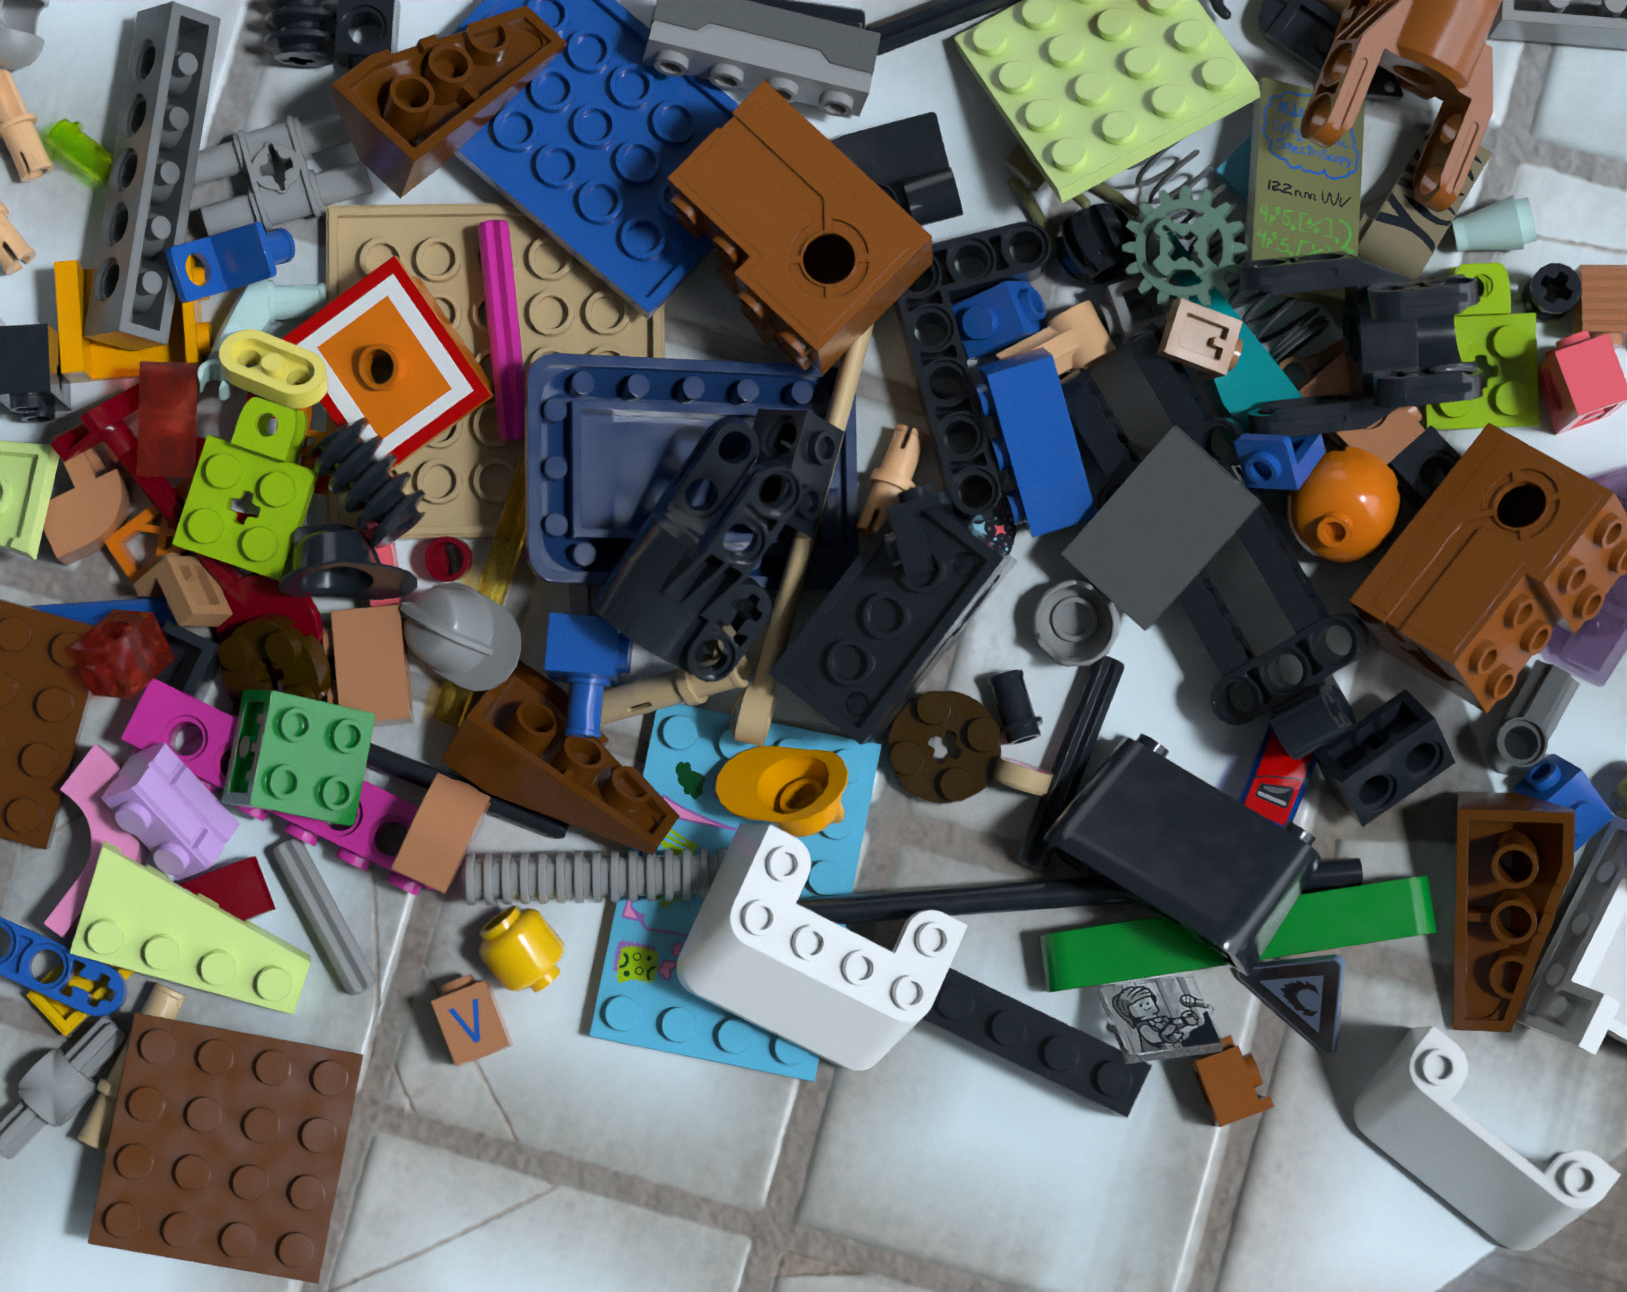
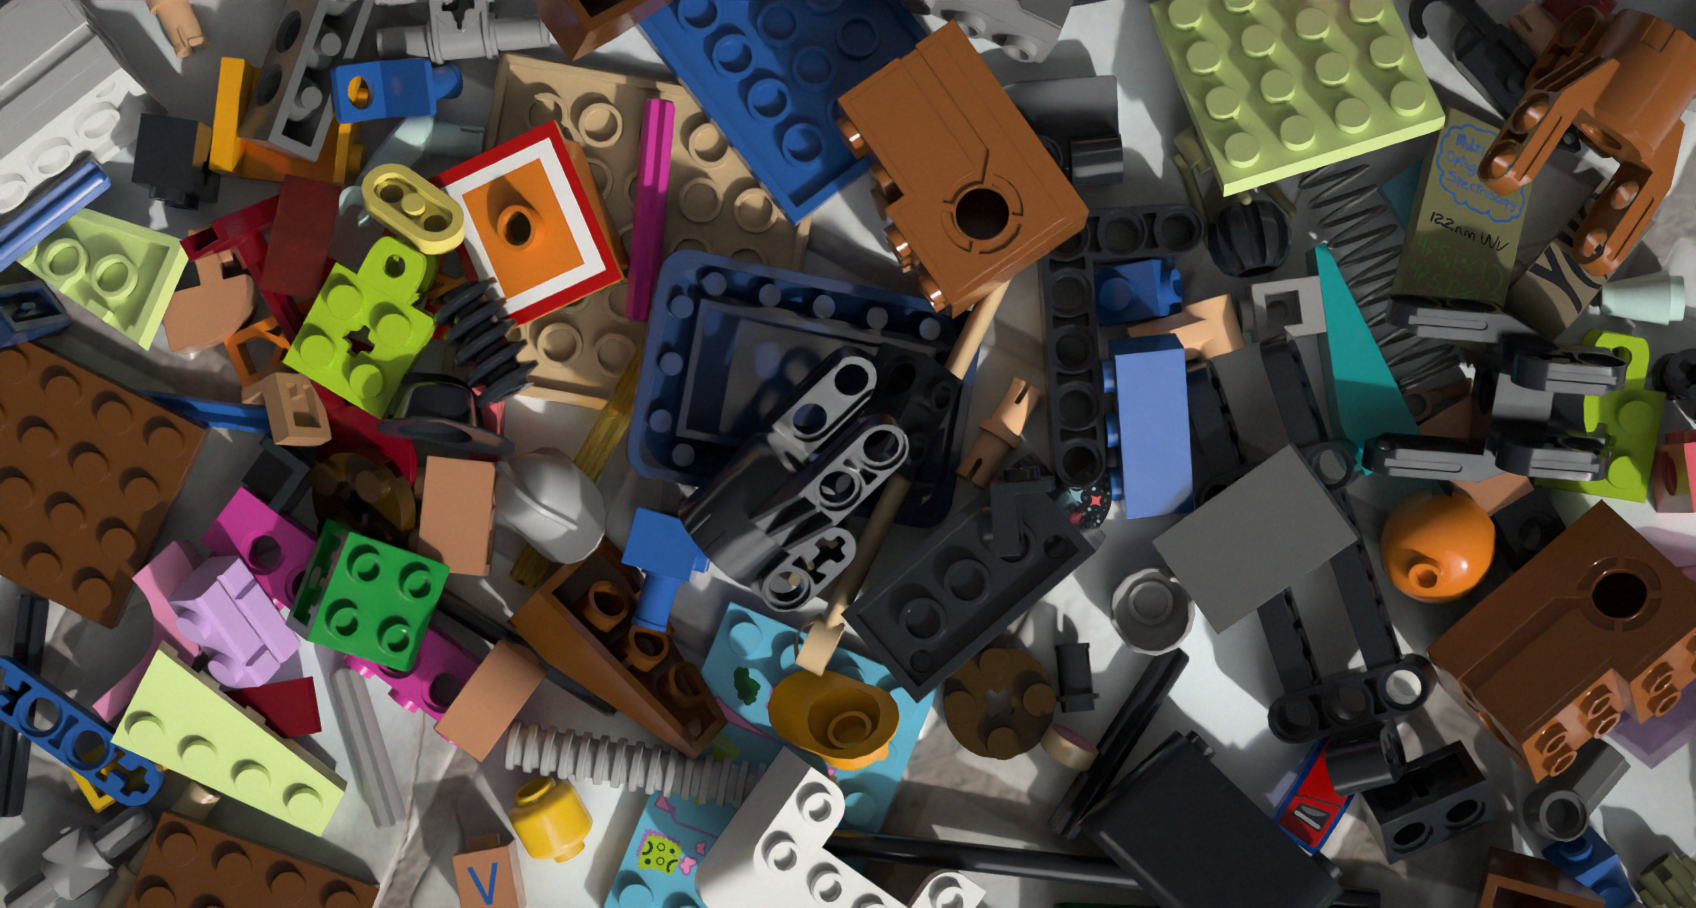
camera: 15 degrees right, 5 degrees up
(122, 654) = (215, 459): clear red brick -> none
(438, 560) = (543, 424): dark red hinge -> none
(667, 690) = (734, 599): tan pin -> none
(1201, 339) = (1334, 360): bracket -> none
(1204, 228) = (1313, 280): sand green gear -> none
(1278, 459) = (1385, 498): blue bracket -> none

